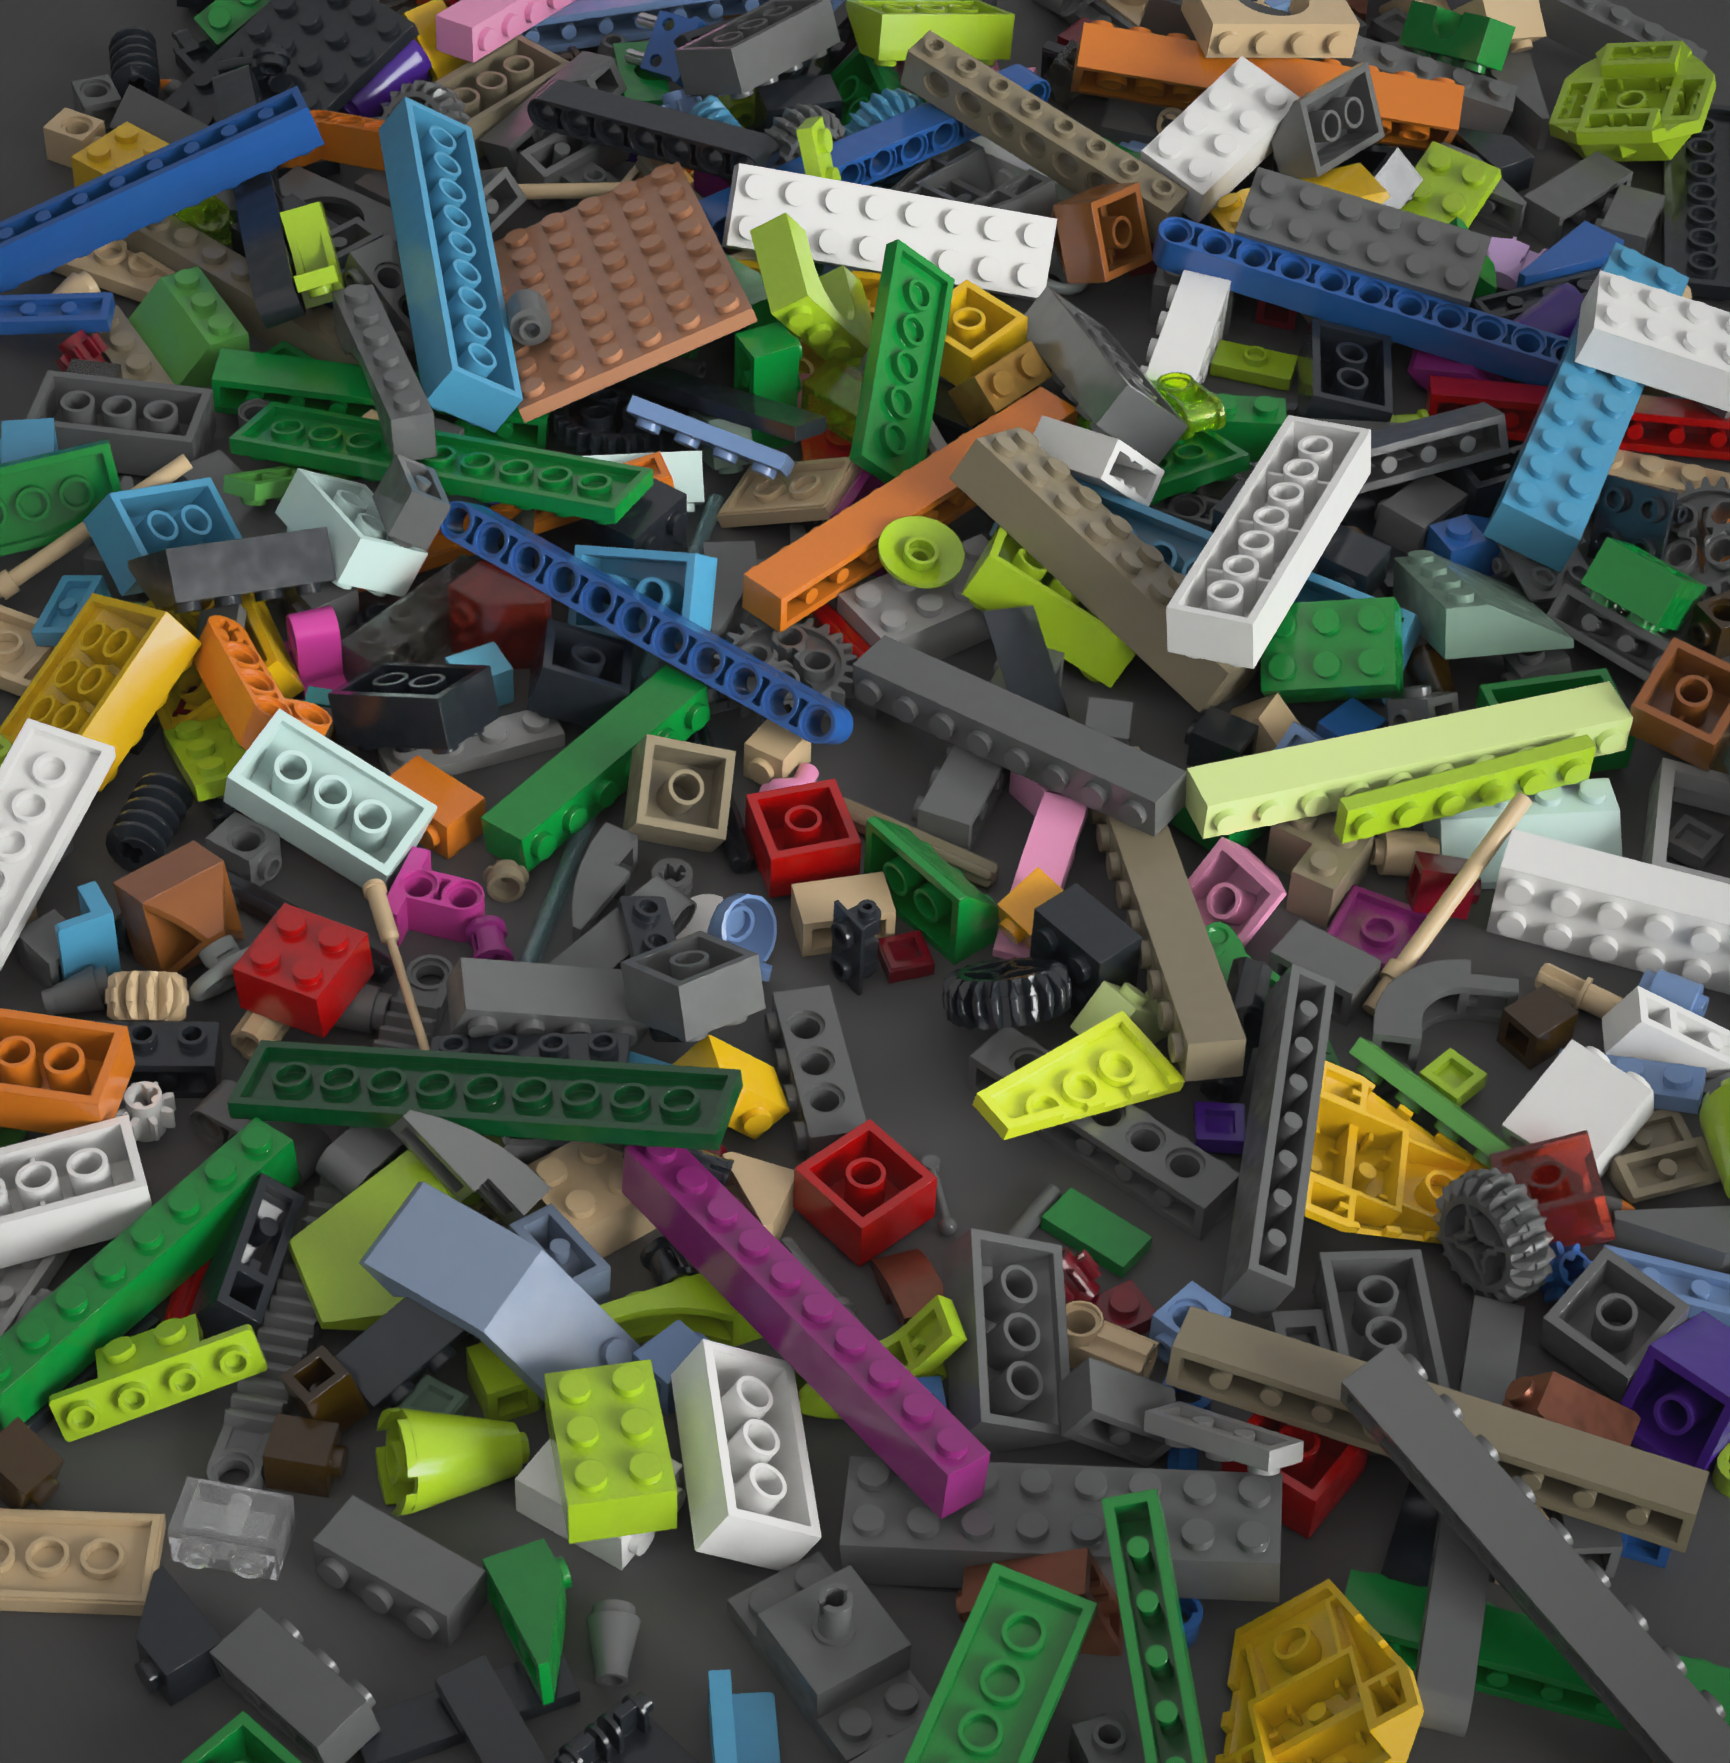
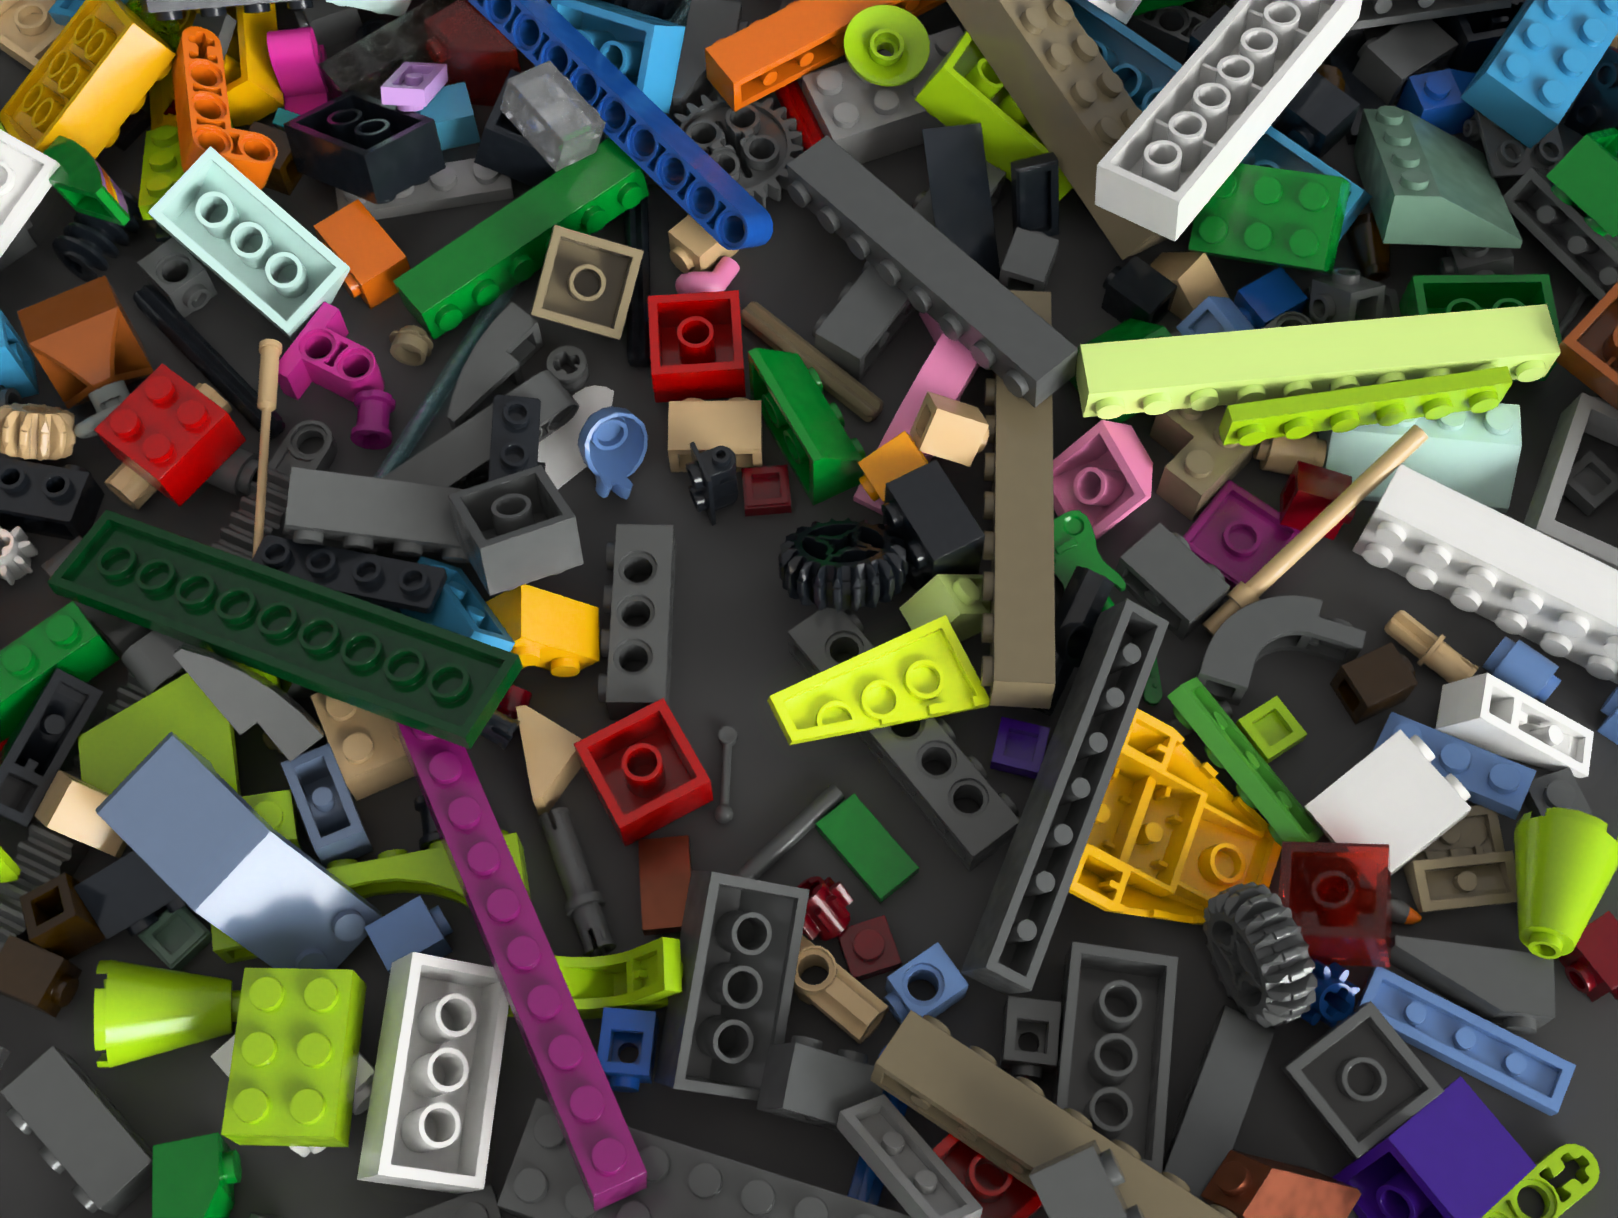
camera: 15 degrees right, 20 degrees up
(146, 768) = (86, 183): none -> green slope
(323, 1296) = (71, 811): none -> tan slope
(454, 644) = (414, 85): none -> lavender plate
(610, 647) = (552, 115): none -> clear brick
(1079, 862) = (949, 429): none -> tan brick
(1098, 664) = (1036, 194): none -> black tile

